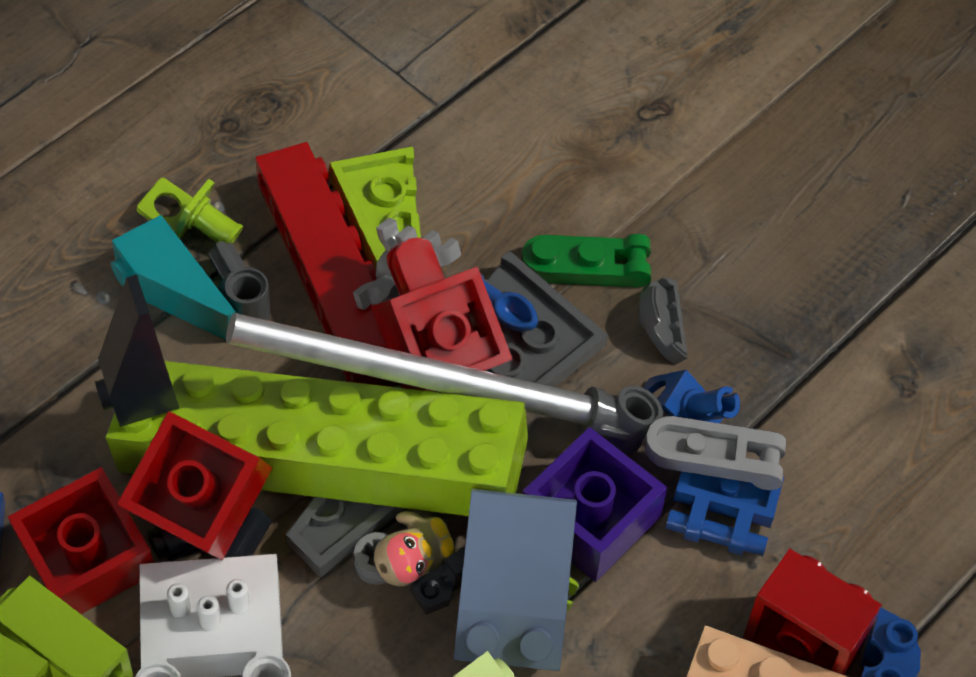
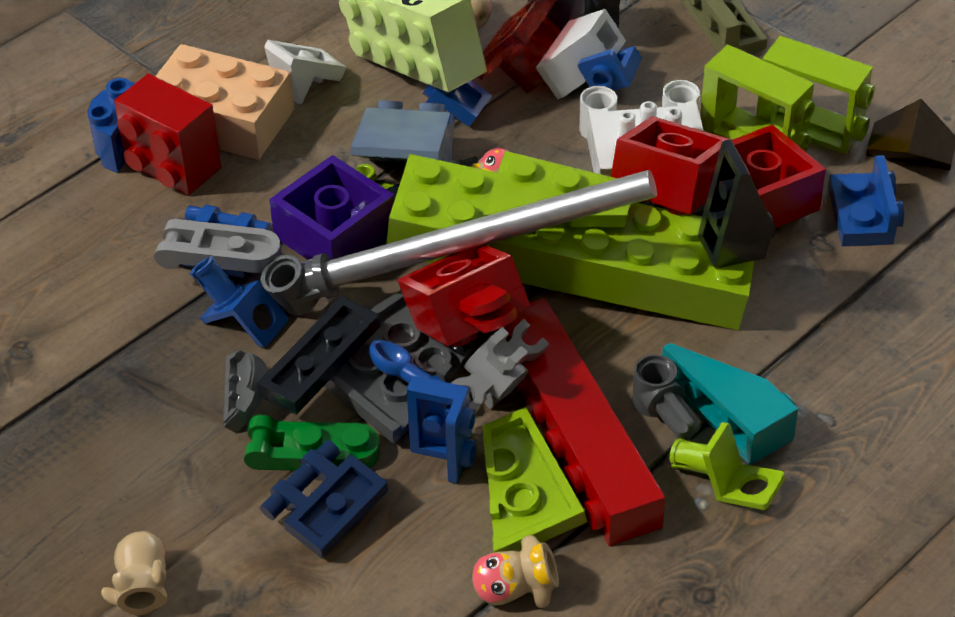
camera: 175 degrees left, 10 degrees down
(337, 425) = (530, 180): none -> lime wing
(398, 117) = (511, 574): none -> animal
(466, 222) = (441, 423): none -> blue bracket
(559, 183) = (333, 506): none -> dark blue plate
(587, 312) = (318, 355): none -> black plate
(723, 130) = (139, 574): none -> tan animal

